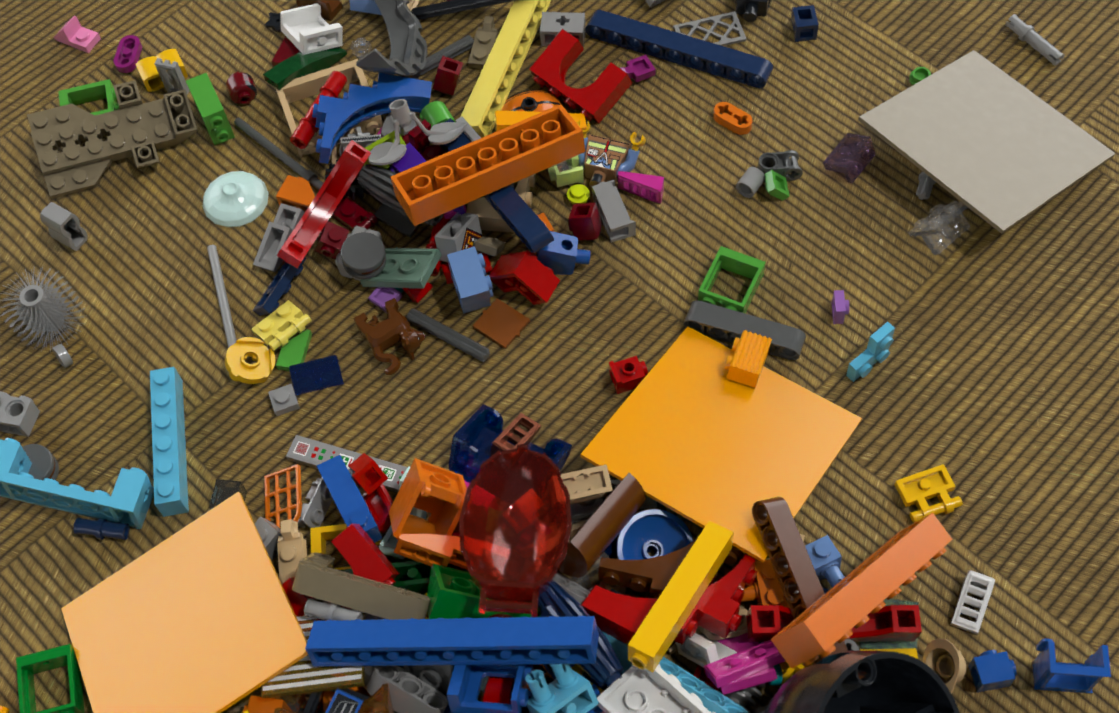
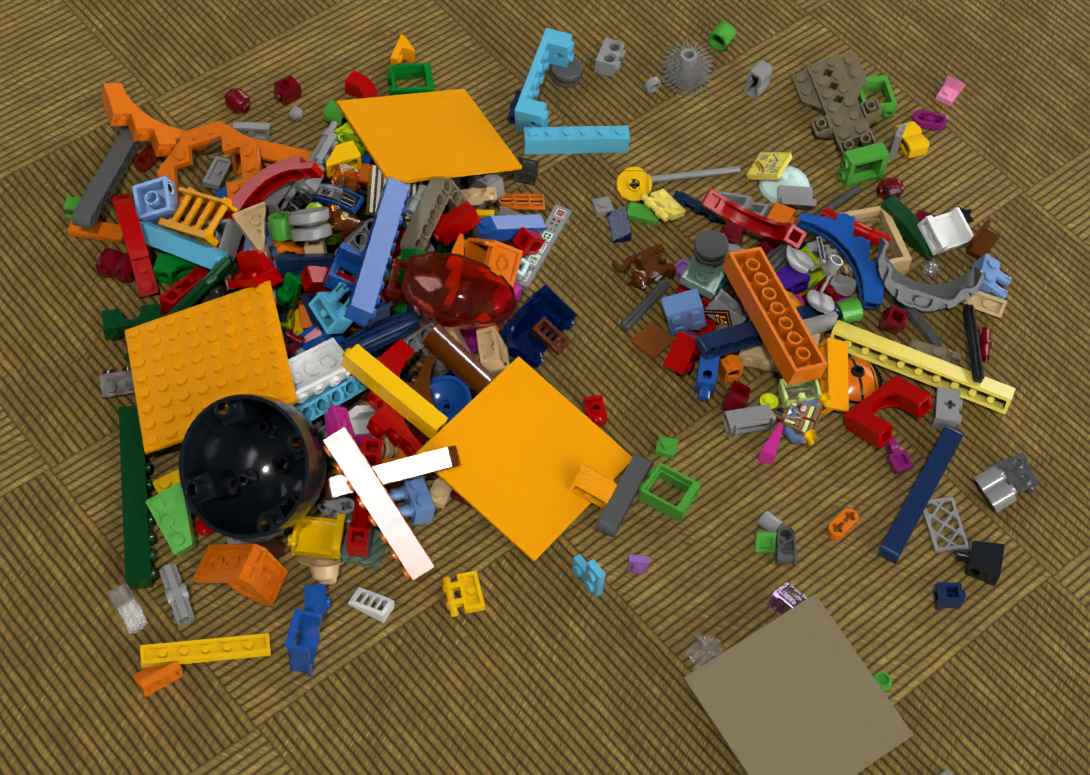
camera: 85 degrees right, 5 degrees down
(211, 210) = (769, 166): none -> light yellow tile
(262, 180) = (796, 196): none -> light grey panel
(662, 295) = (666, 447): none -> bright green plate

